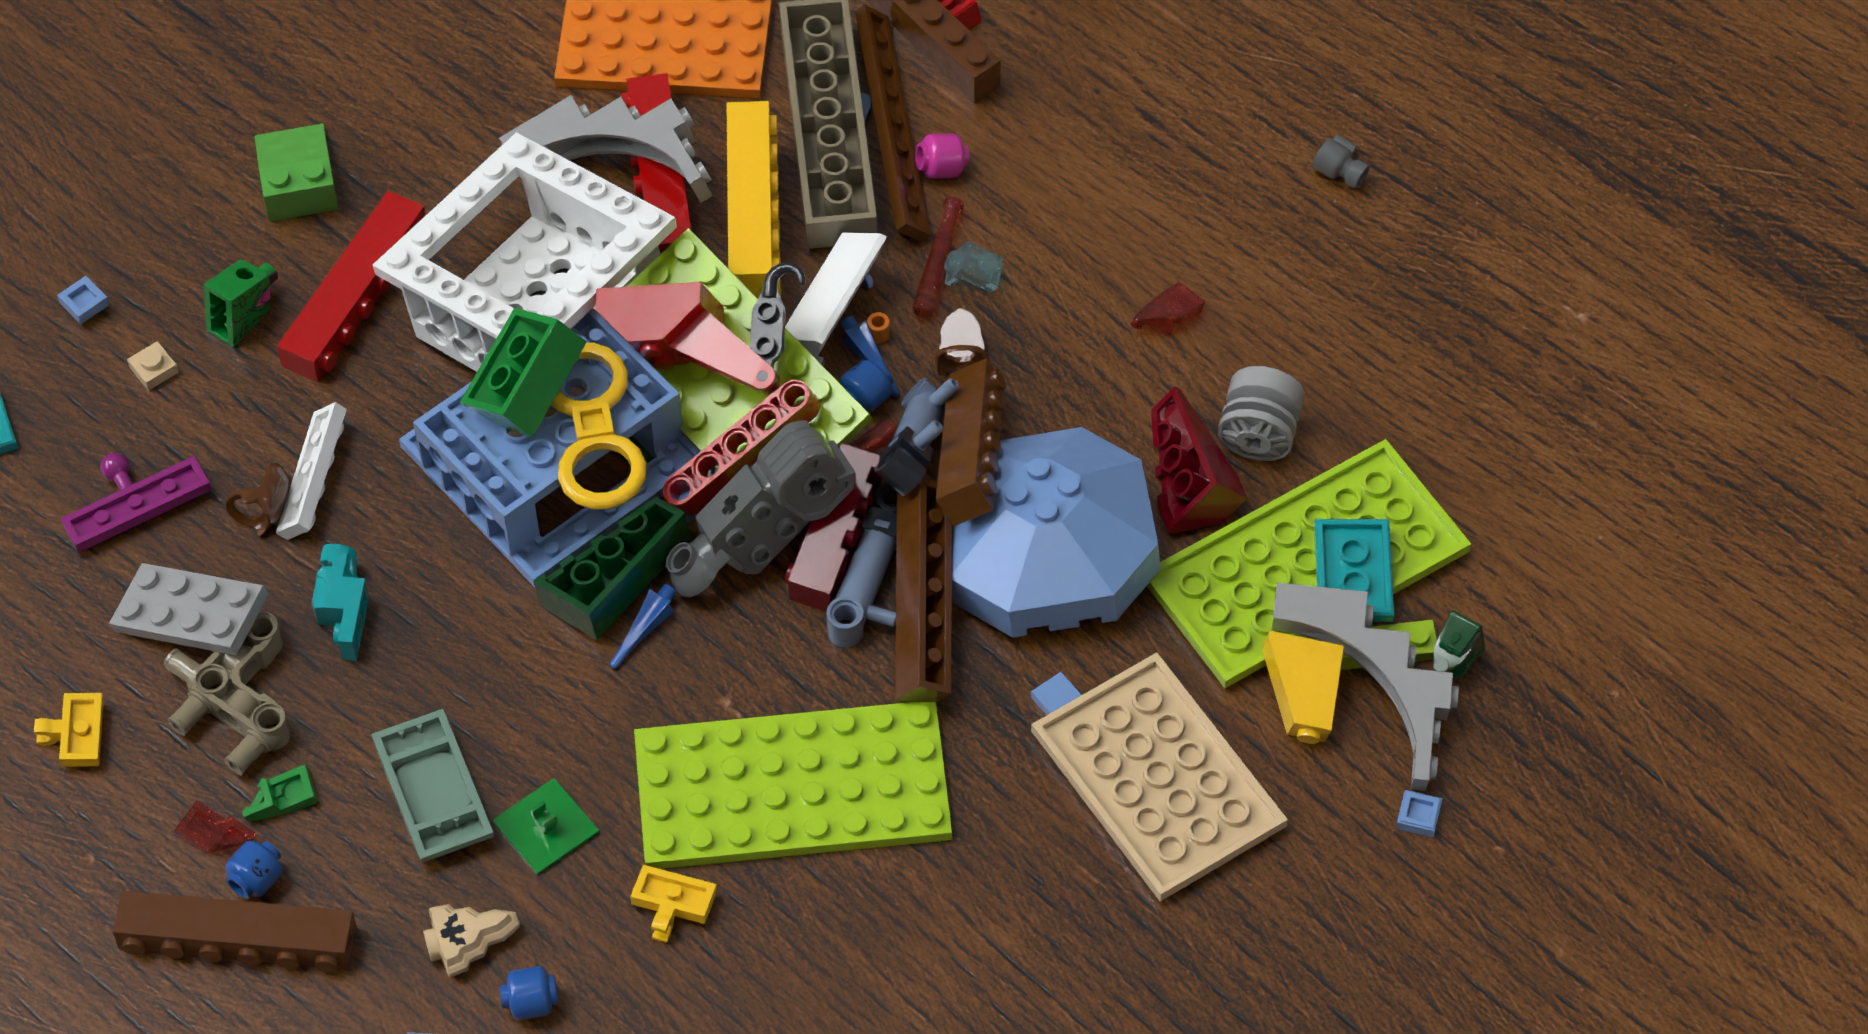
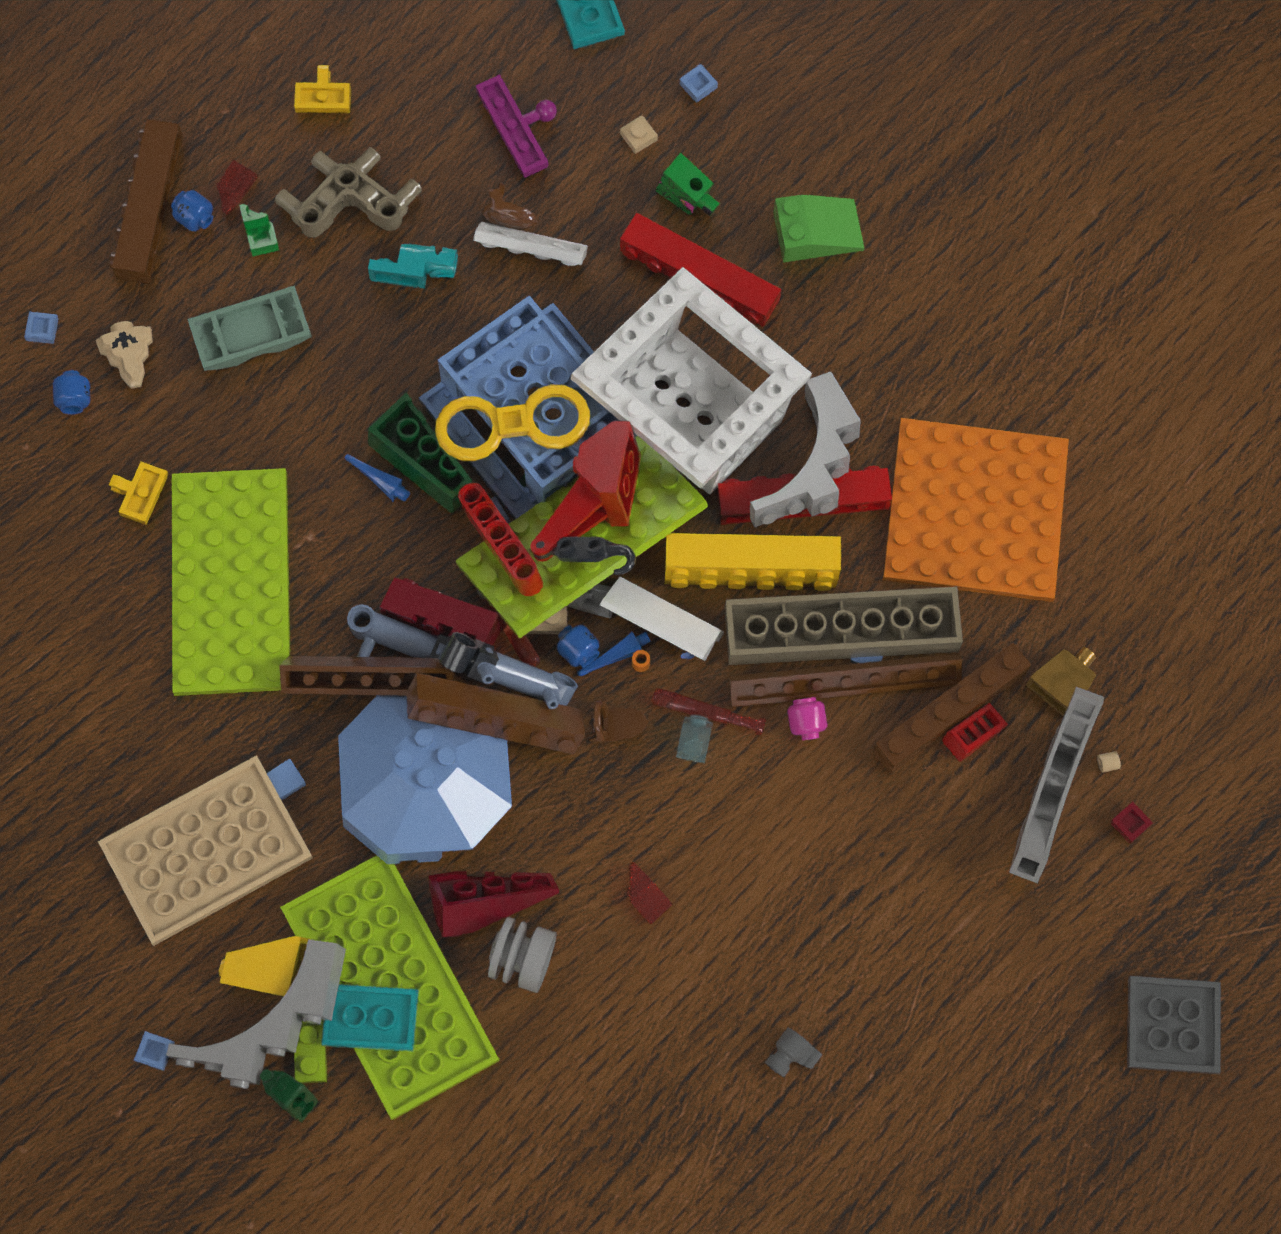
camera: 90 degrees right, 15 degrees up
(189, 609) = (409, 160): light grey plate -> none
(524, 371) = (549, 365): green slope -> none
(545, 826) = (216, 409): green piece -> none
(763, 507) = (446, 555): dark grey brick -> none

